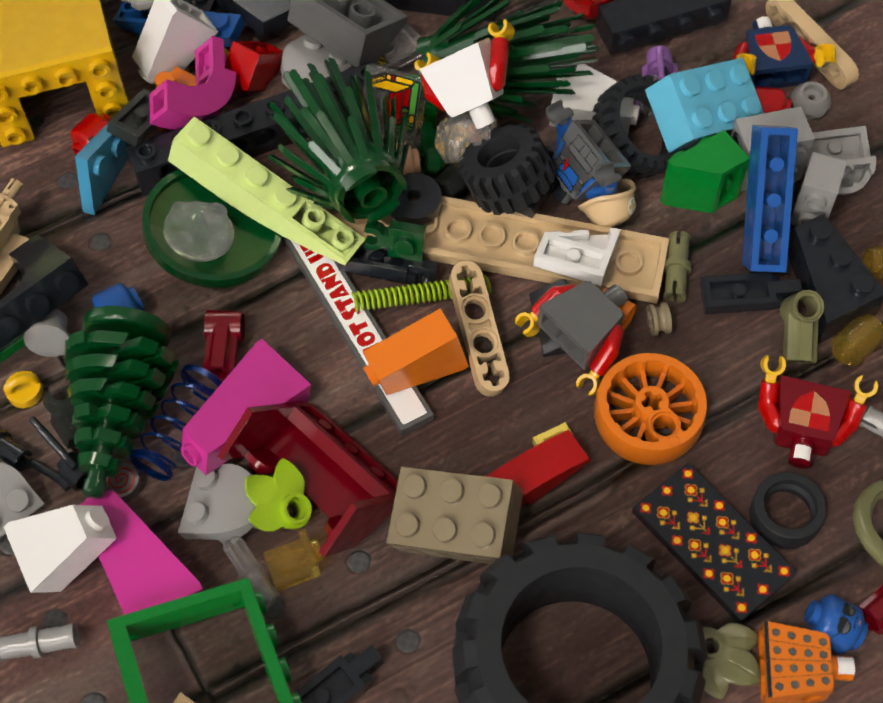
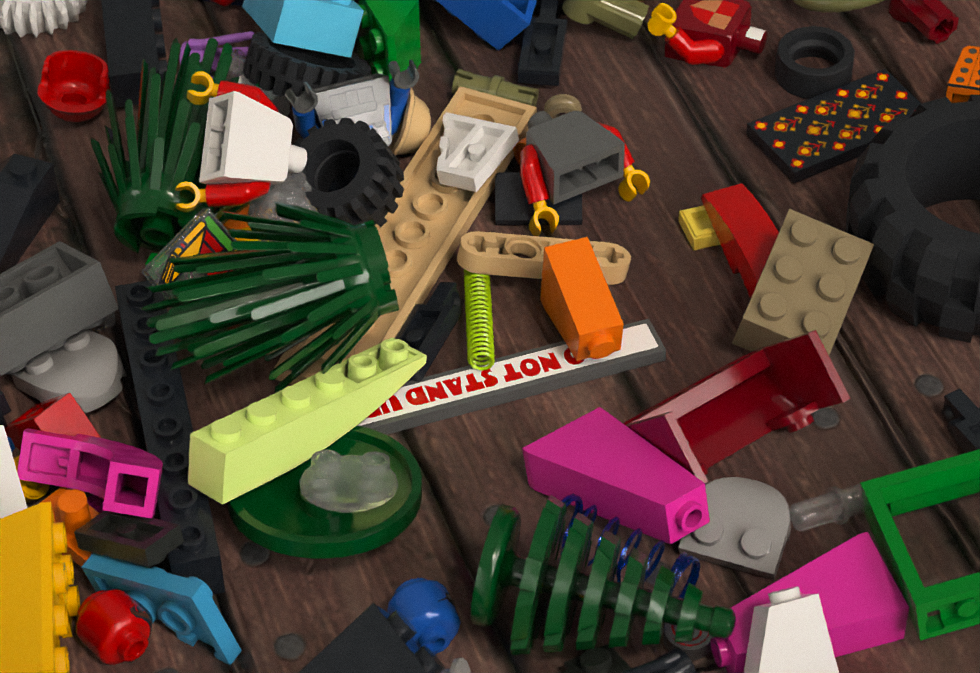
camera: 80 degrees left, 15 degrees down
(222, 335) = (485, 492): dark red piece -> none
(273, 496) = (748, 462): lime plate -> none
(294, 562) = (822, 459): clear yellow bracket -> none
(401, 238) = (414, 296): dark green plate -> none
(656, 448) = (681, 137): orange piece -> none
(839, 620) = (941, 47): blue head -> none

